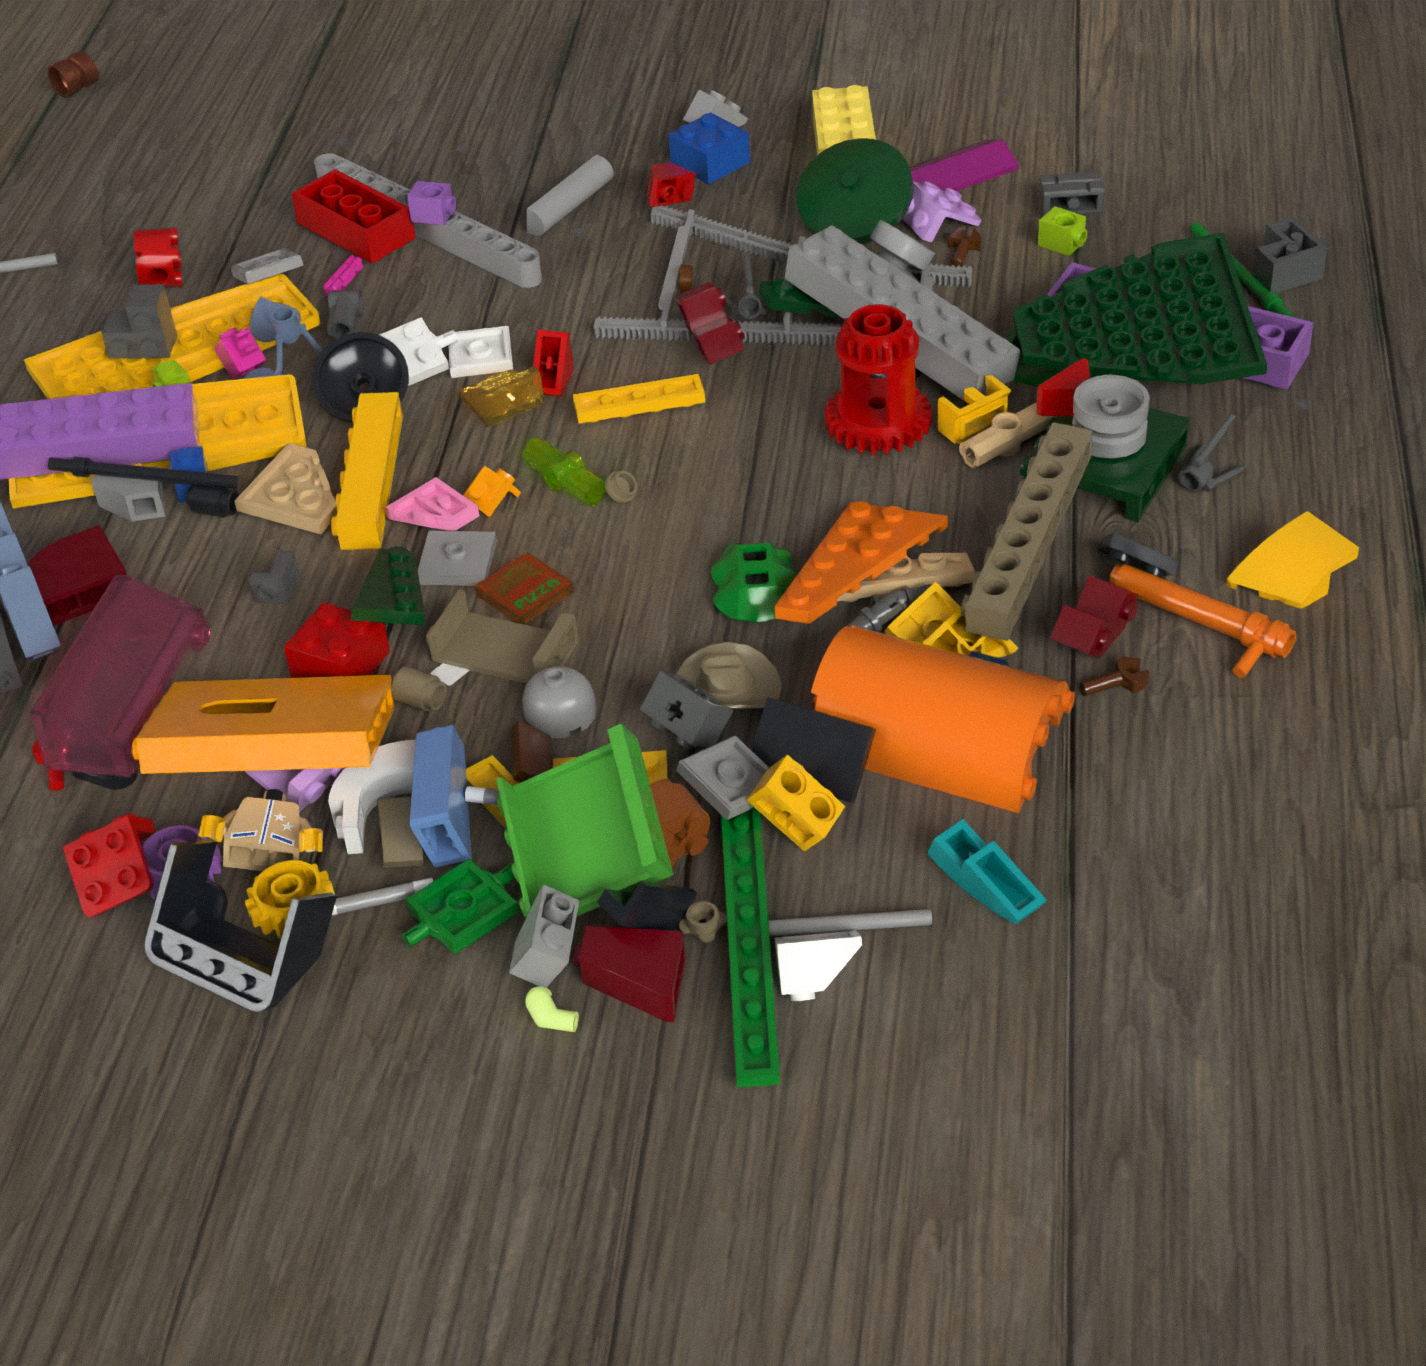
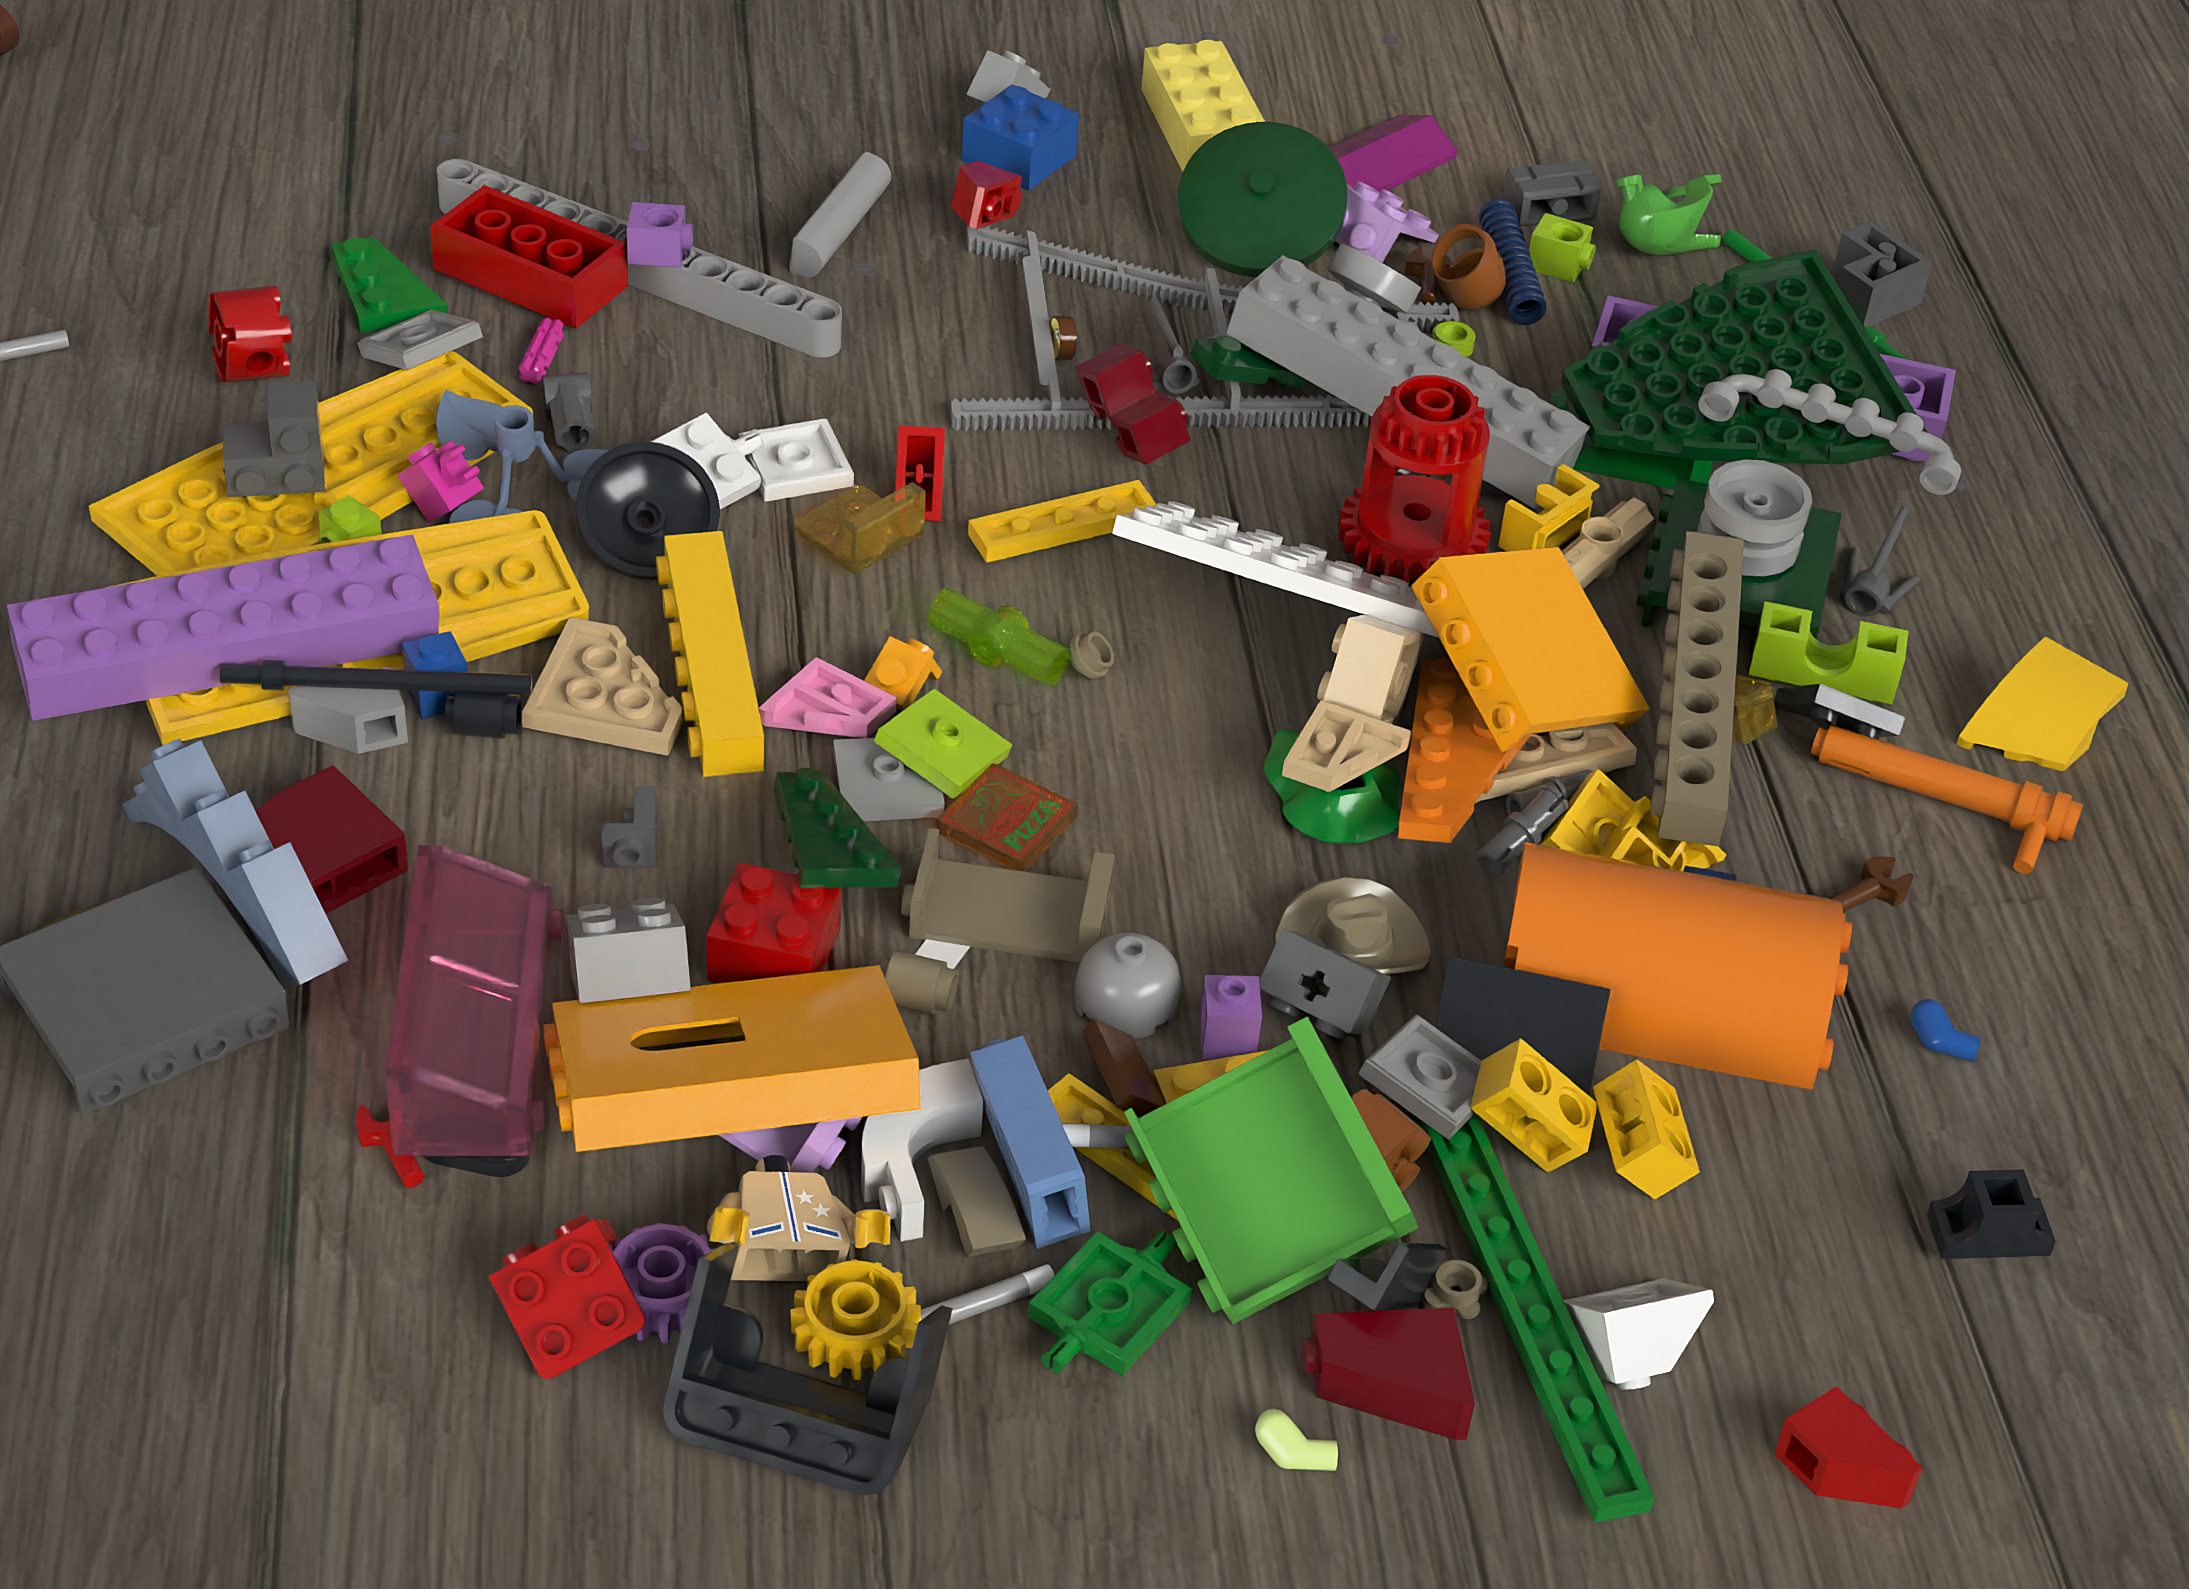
camera: 20 degrees left, 0 degrees up
(231, 653) = (627, 951): none -> light grey brick
(259, 231) = (380, 285): none -> green wing
(496, 536) = (942, 743): none -> lime plate
(545, 937) = (1260, 1339): light grey slope -> none
(612, 713) = (1230, 1016): none -> medium lavender brick
(753, 554) = (1341, 746): none -> tan wing
(795, 445) = (1268, 561): none -> white wing
(795, 506) = (1371, 667): none -> tan brick
(850, 922) = (1659, 1267): light grey bar -> none
(873, 827) = (1645, 1129): none -> yellow brick
(908, 492) = (1528, 643): none -> light orange panel
(931, 1061) = (1846, 1454): none -> red slope
(963, 291) = (1456, 335): none -> lime tile
(985, 873) = (1812, 1180): teal slope -> none
(990, 249) = (1473, 277): none -> dark orange helmet
(1024, 239) = (1522, 289): none -> dark blue piece
(1057, 393) = (1677, 485): red slope -> none
(1072, 549) = (1753, 709): none -> clear yellow bracket
(1097, 617) = (1821, 803): dark red brick -> none
(1107, 912) = (1991, 1218): none -> black brick
(1114, 509) = (1861, 668): none -> lime arch
(1125, 783) = (1939, 1034): none -> blue arm
(1144, 217) = (1660, 225): none -> bright green piece
(1261, 393) = (1939, 471): none -> light grey bar

